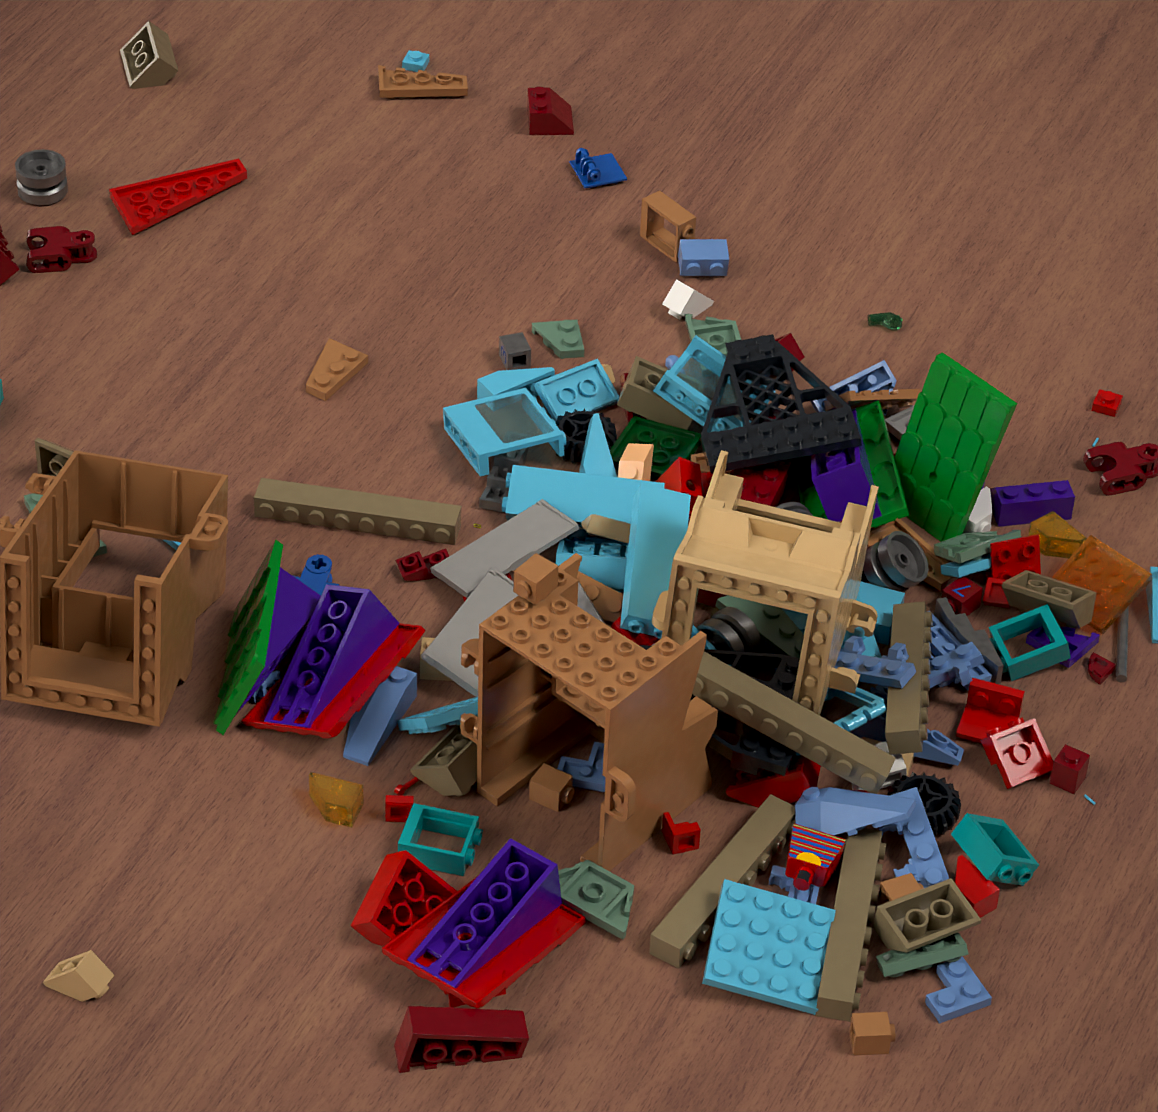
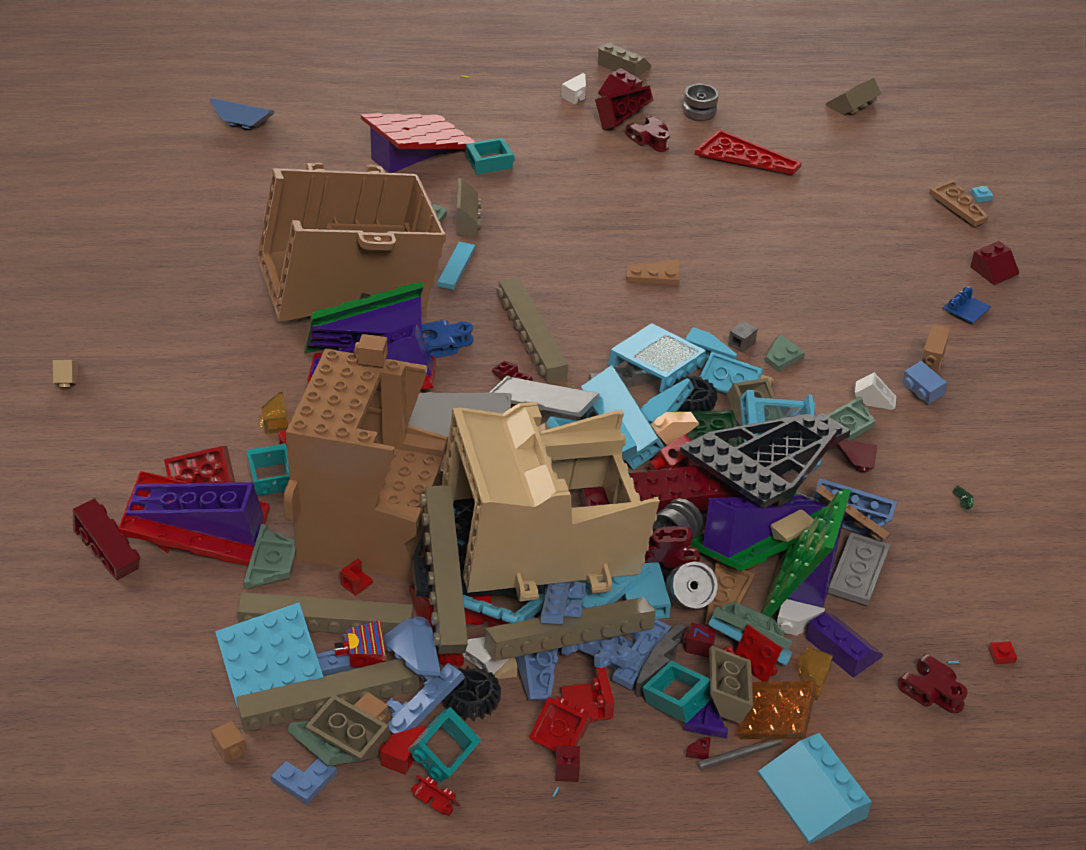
camera: 60 degrees right, 0 degrees up
(880, 445) = (791, 526): none -> tan slope
(1036, 893) = (442, 800): none -> red hinge

